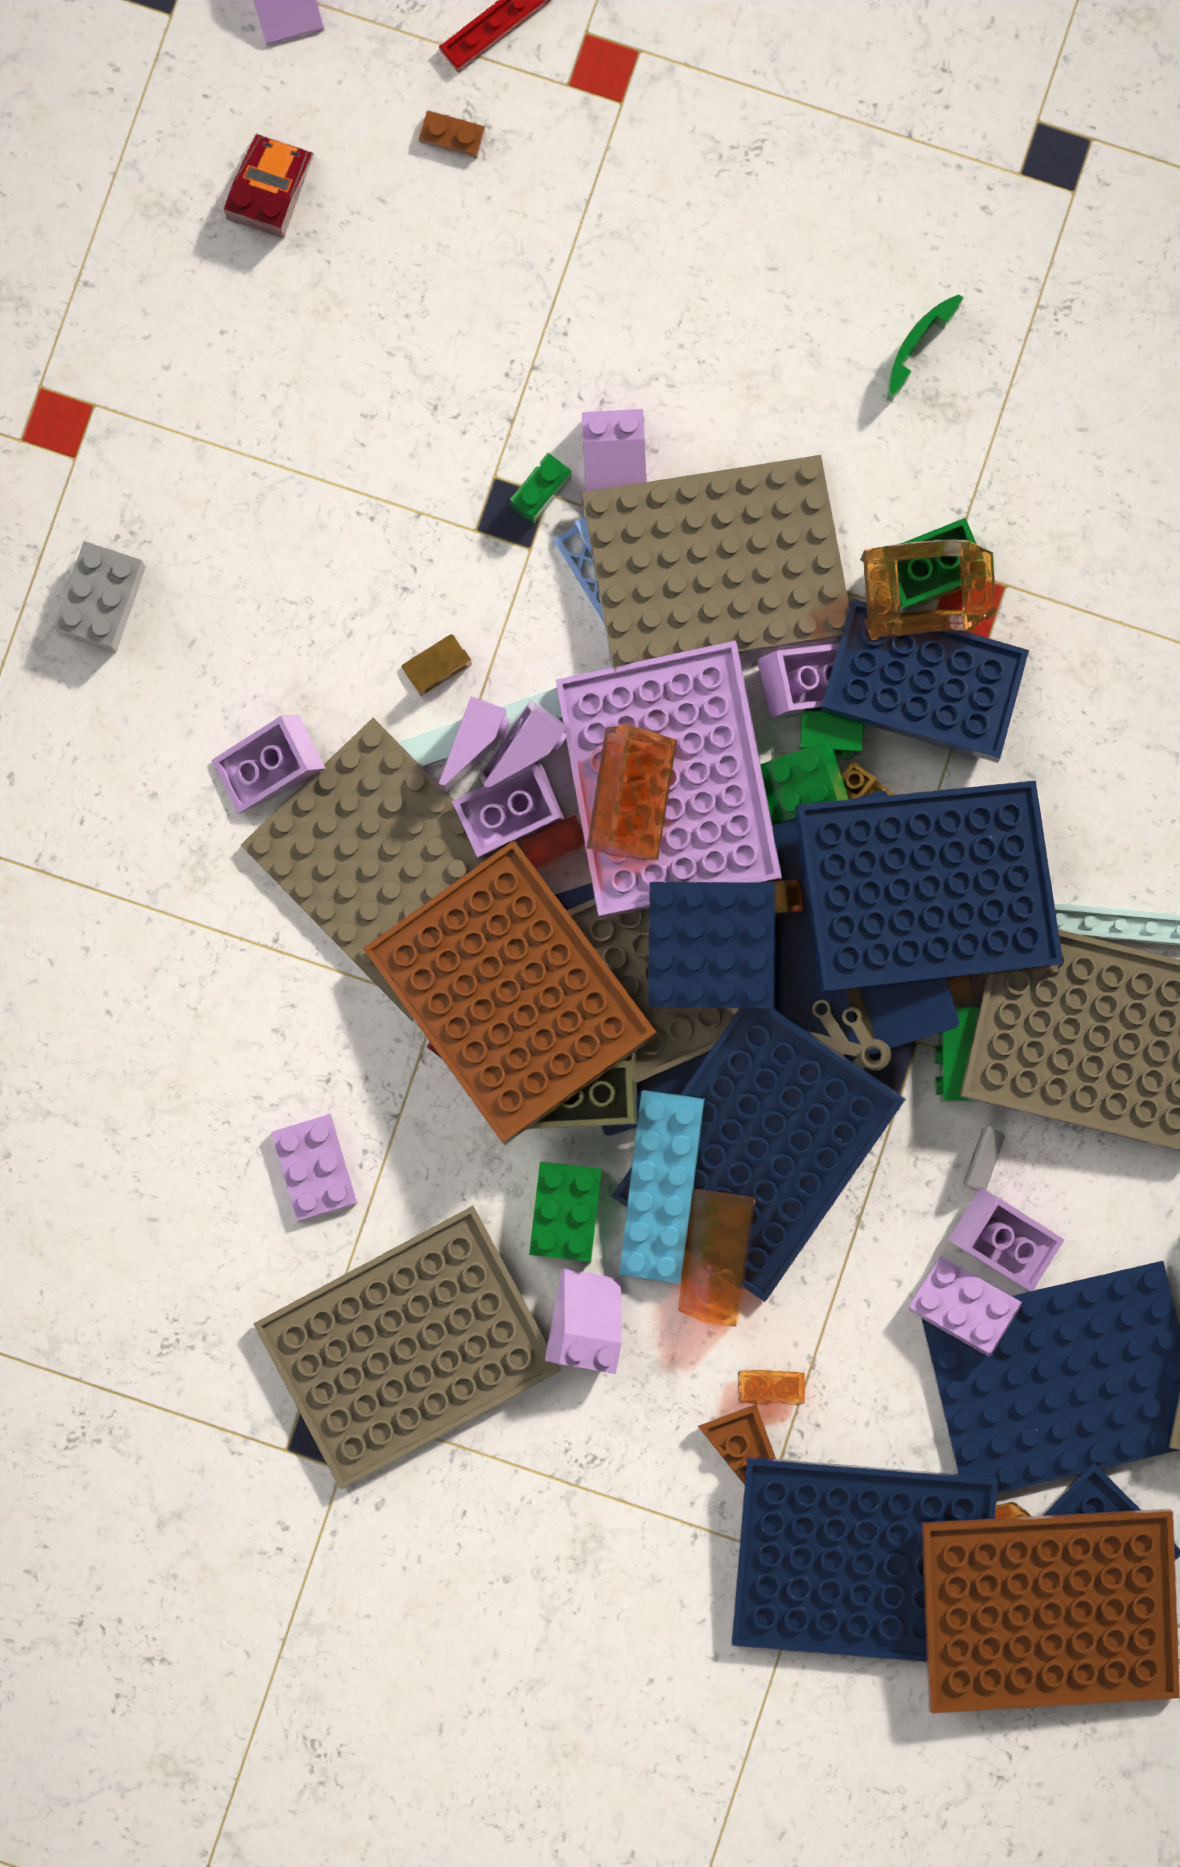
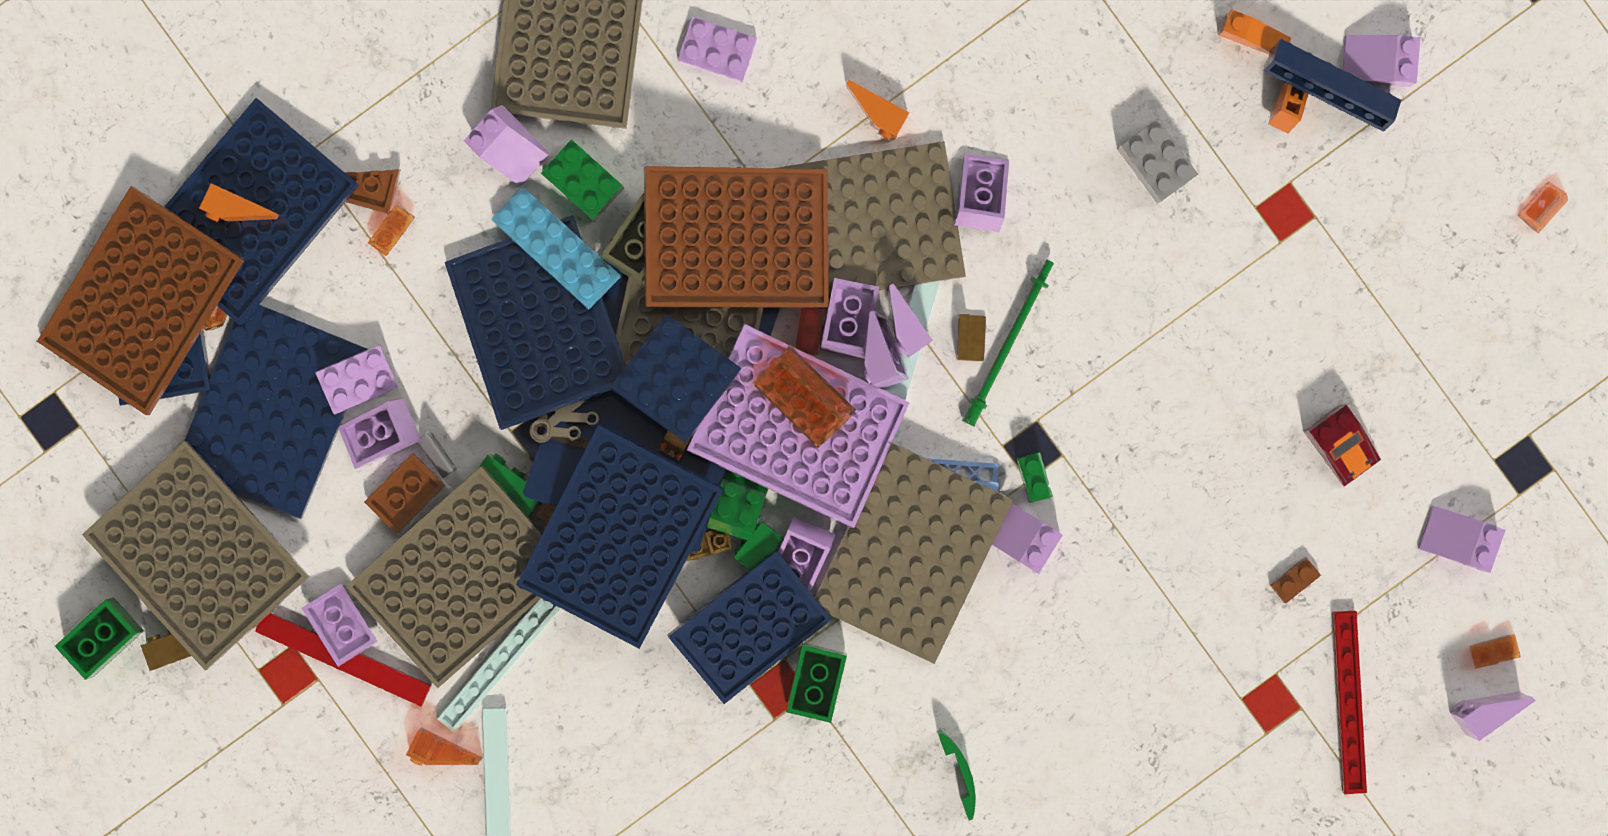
camera: 120 degrees right, 5 degrees up
(258, 934) = (881, 113): none -> orange slope
(500, 606) = (978, 403): none -> green bar
(716, 1257) = (490, 250): clear orange slope -> none
(874, 1583) = (231, 207): none -> orange slope
(883, 588) = (822, 640): clear orange wedge -> none
(1051, 1163) = (404, 493): none -> dark orange plate

